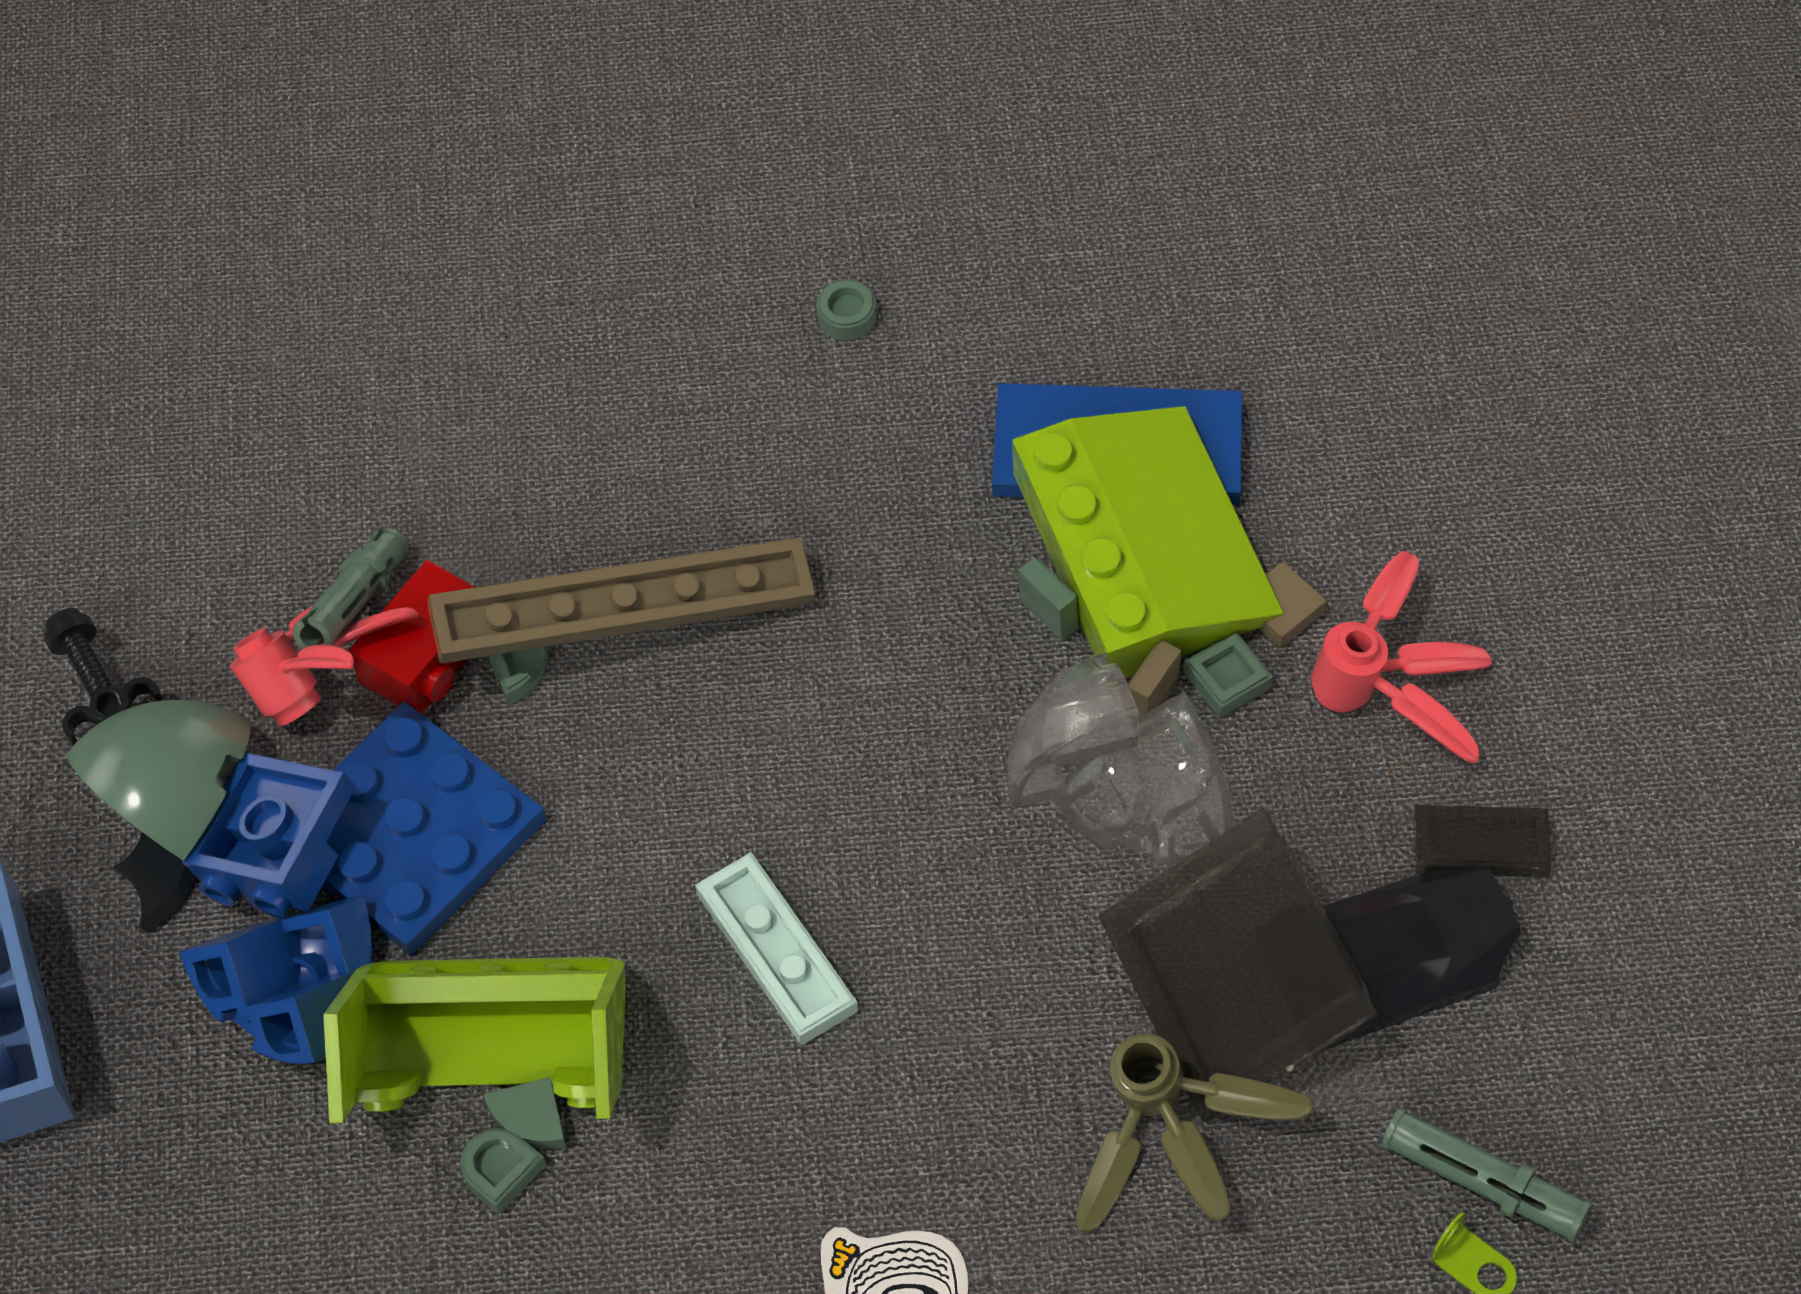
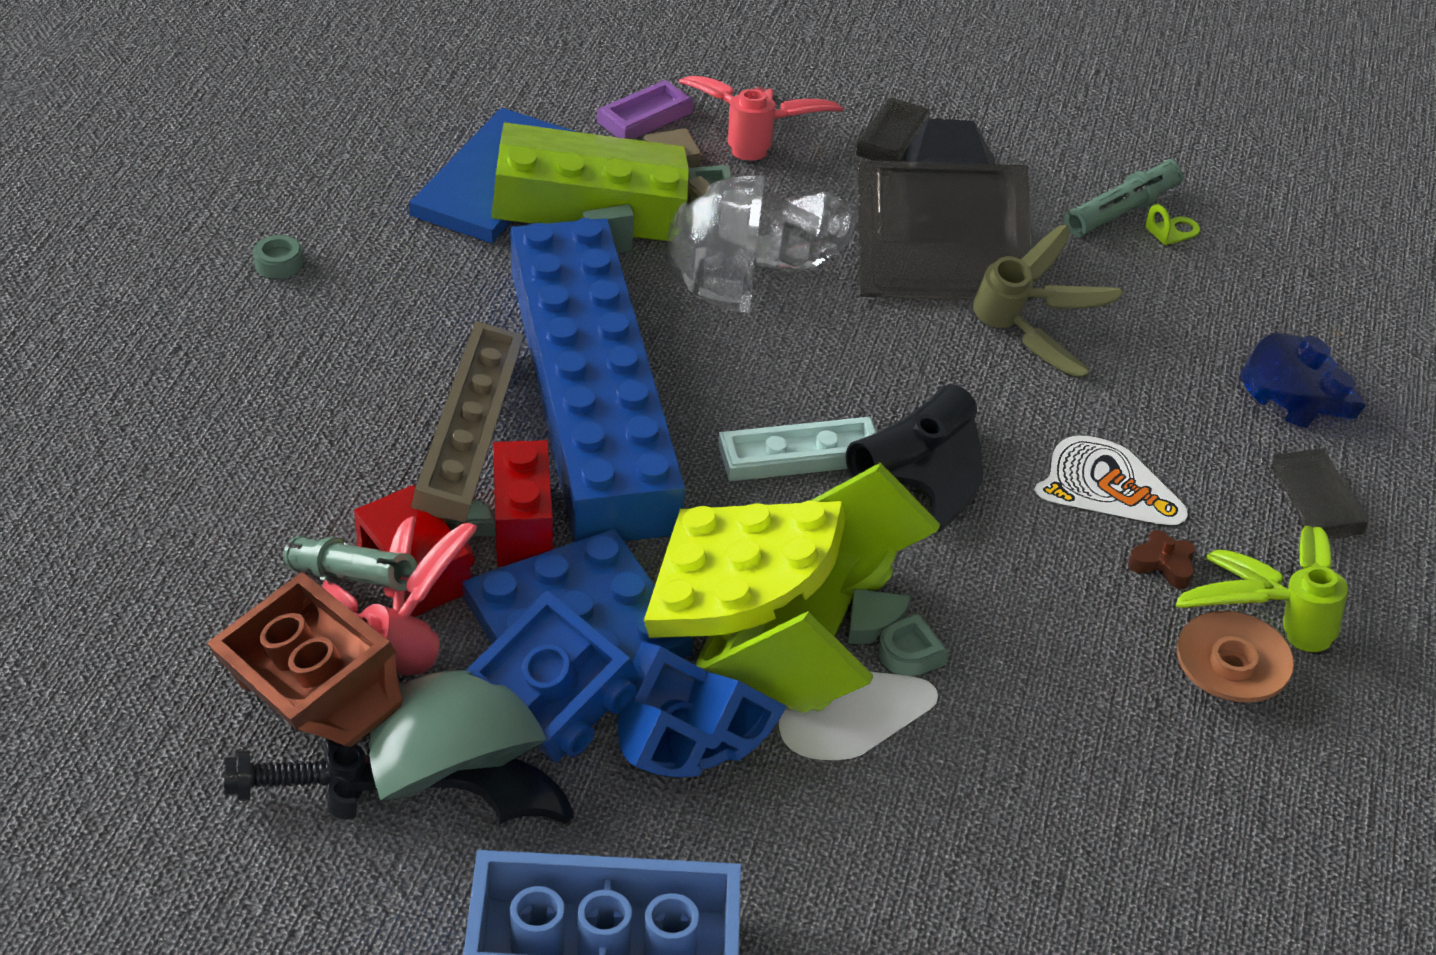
camera: 75 degrees left, 15 degrees down
(193, 615) = (313, 662): none -> copper slope
(397, 1153) = (858, 719): none -> white sticker
(488, 944) = (740, 564): none -> neon yellow plate
(530, 704) = (522, 500): none -> red brick
(769, 687) = (595, 382): none -> blue brick
(800, 1114) = (930, 450): none -> black pin
(1342, 539) = (645, 110): none -> medium lavender tile

